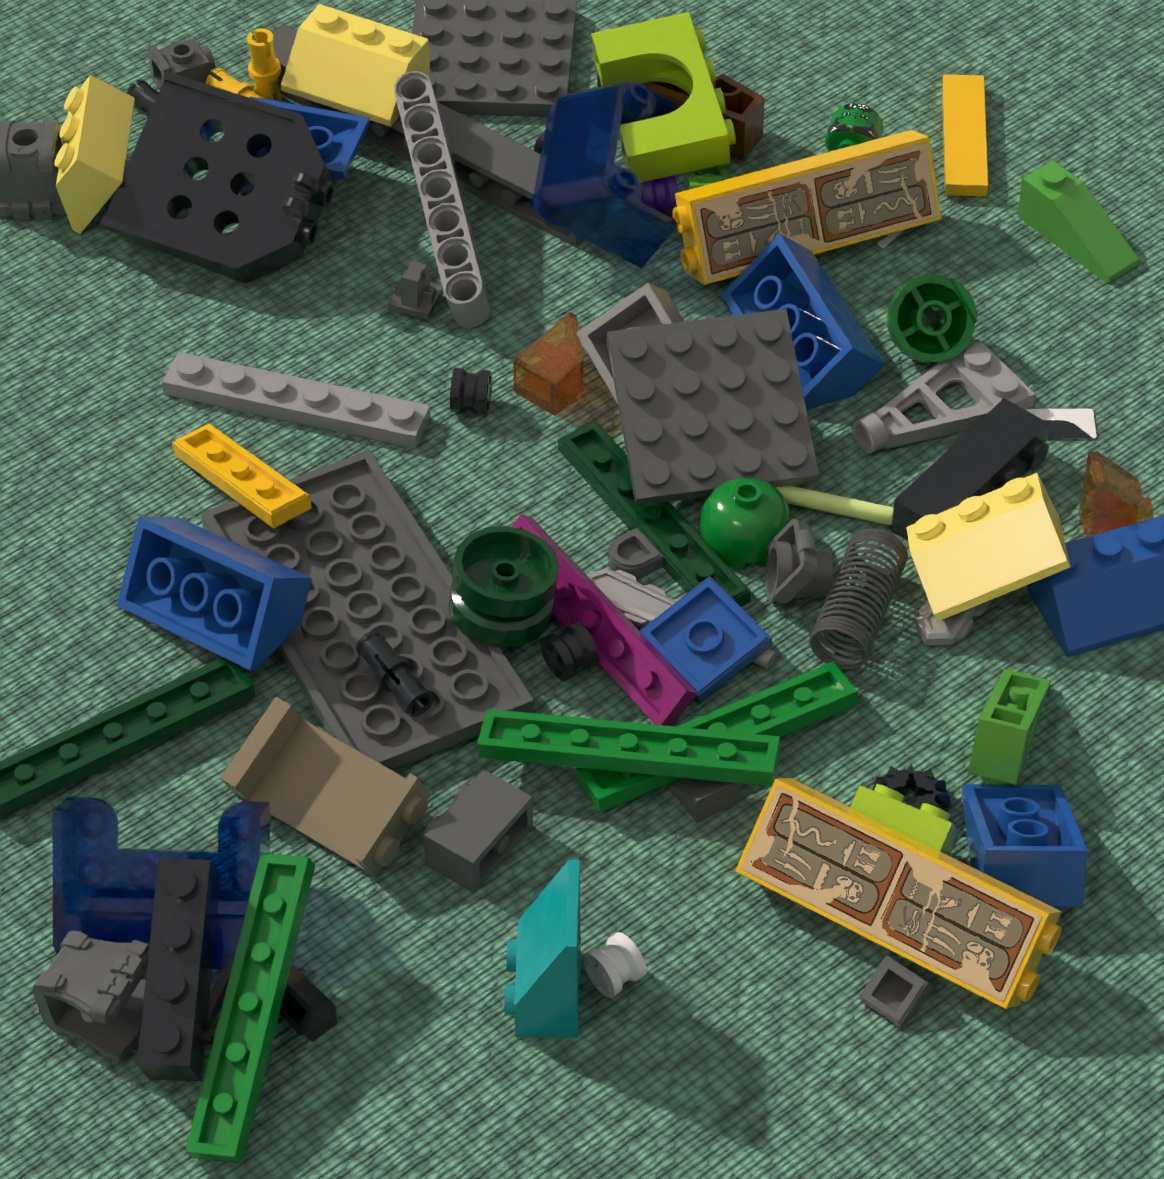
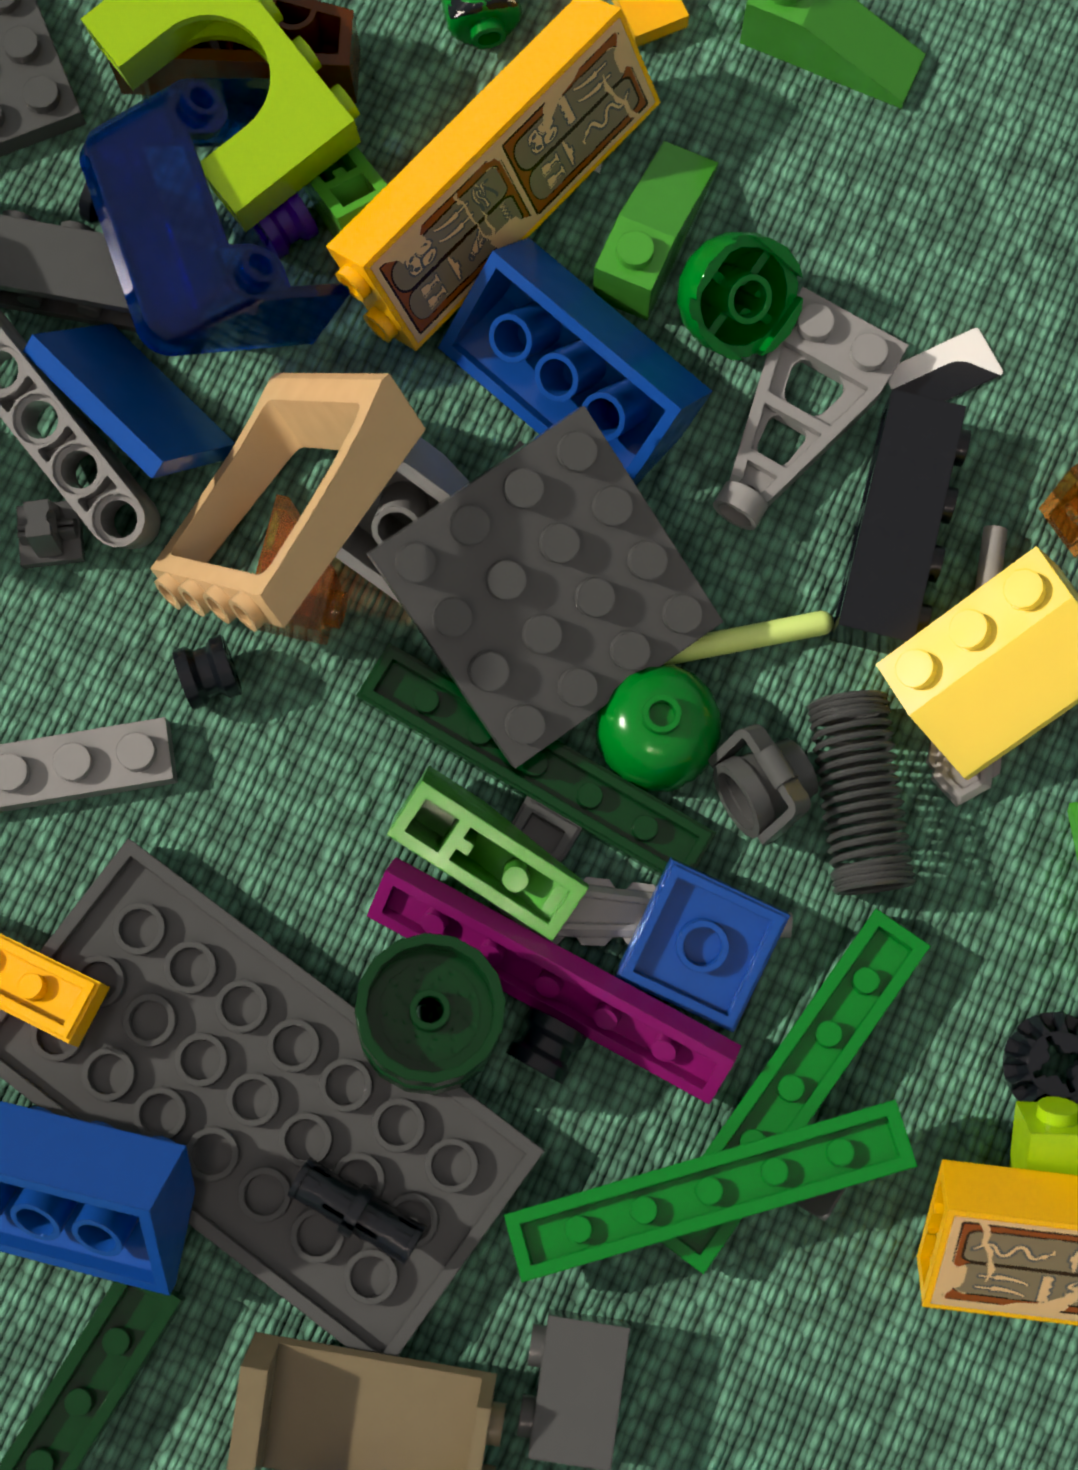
camera: 25 degrees left, 30 degrees up
(508, 239) = (129, 399): none -> blue tile
(580, 292) = (344, 412): none -> tan windscreen
(589, 529) = (486, 853): none -> bright green slope
(875, 278) = (652, 230): none -> bright green slope

